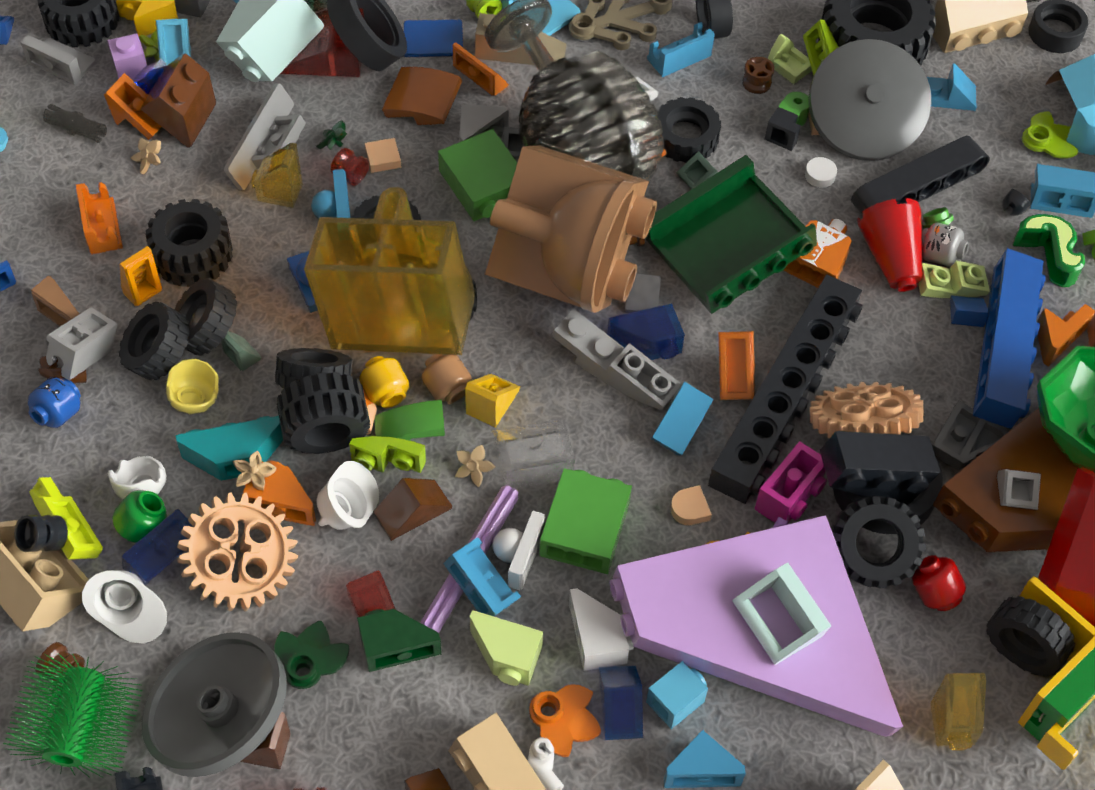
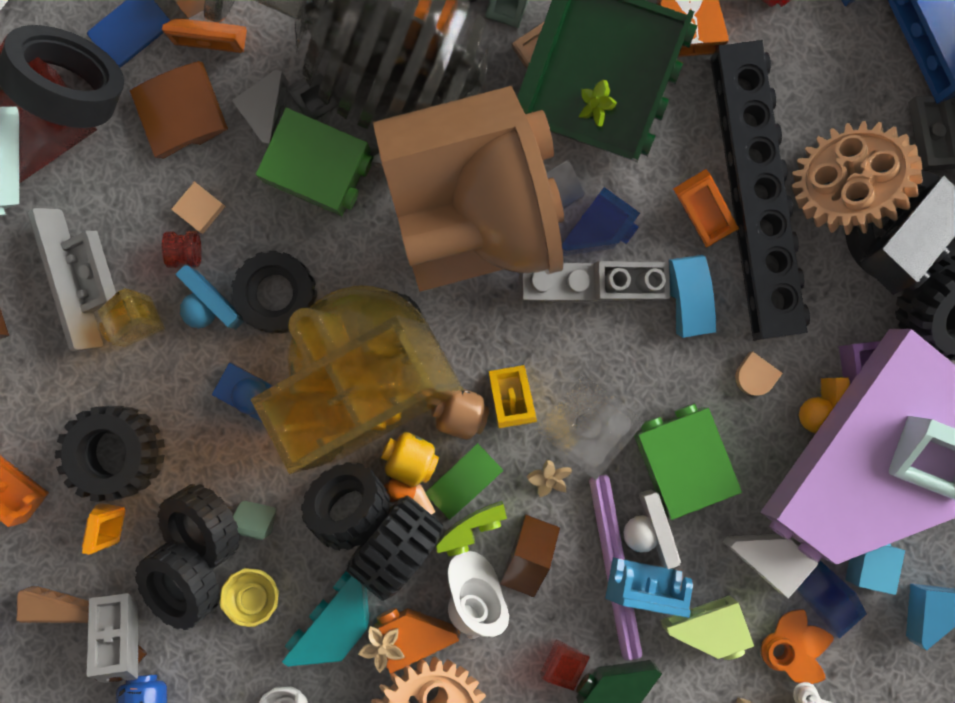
camera: 35 degrees left, 30 degrees up
(333, 136) = (134, 222): dark green plant -> none
(709, 251) = (597, 102): none -> lime plant
(792, 484) = (837, 298): dark pink brick -> none

